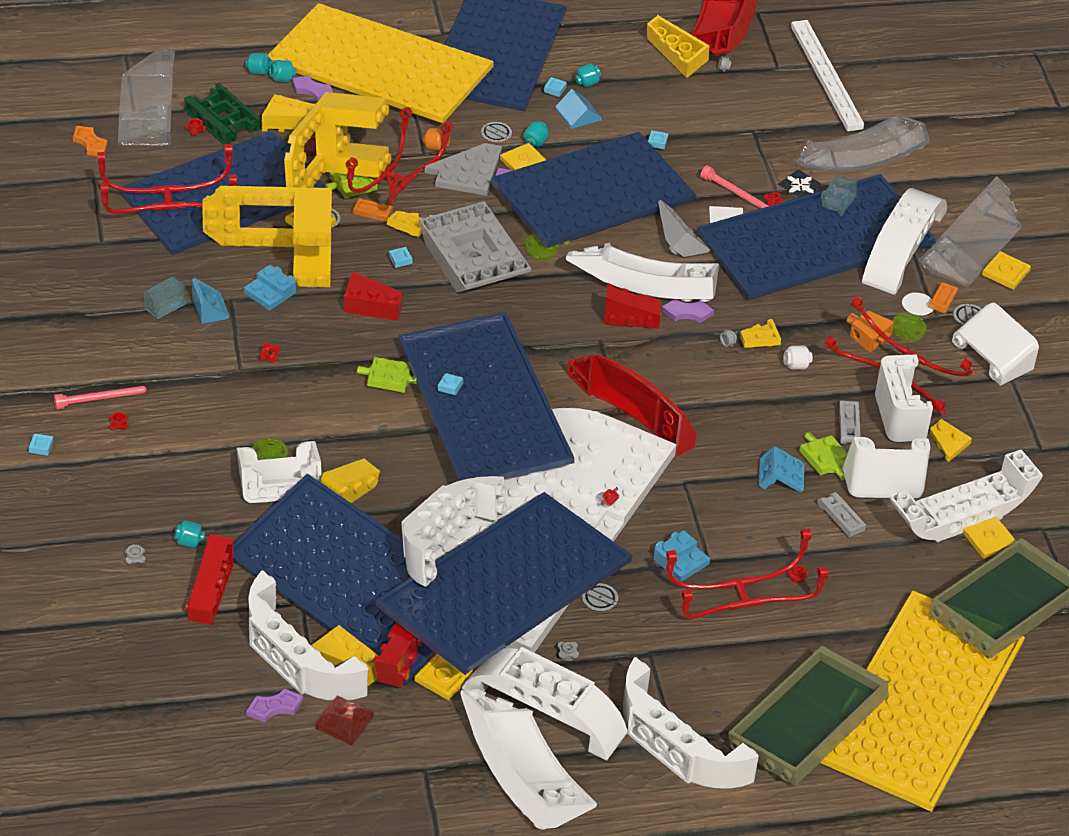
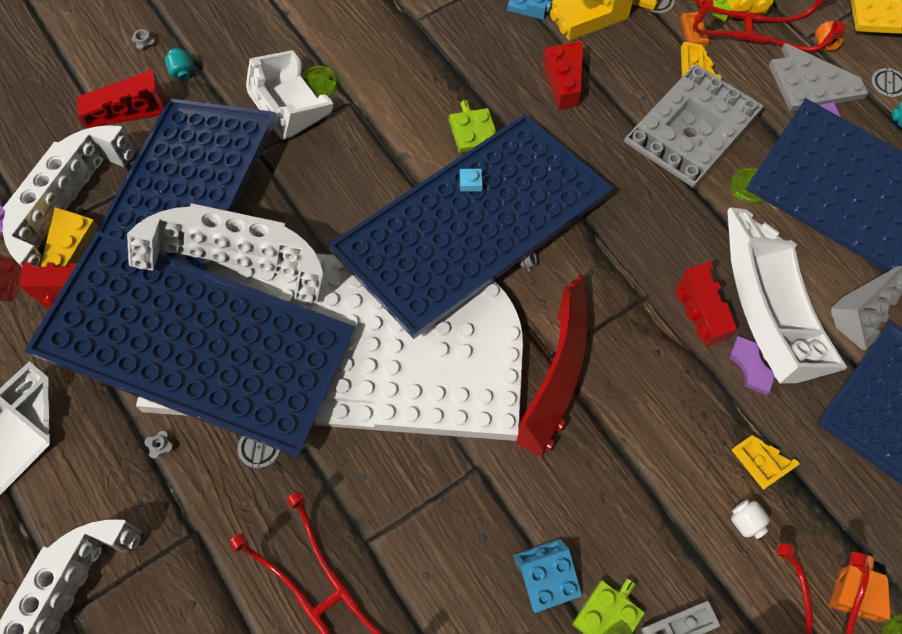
camera: 70 degrees right, 20 degrees up
(265, 352) = (444, 28): red plate -> none
(352, 479) = (297, 153): yellow wedge -> none
(400, 257) = (642, 74): medium azure plate -> none
(521, 157) = (867, 117): yellow plate -> none
(554, 692) = (45, 458): white slope -> none
(610, 497) = (382, 396): red plate -> none
(689, 557) = (352, 509): dark azure plate -> none
(728, 338) = (734, 426): light grey plate -> none

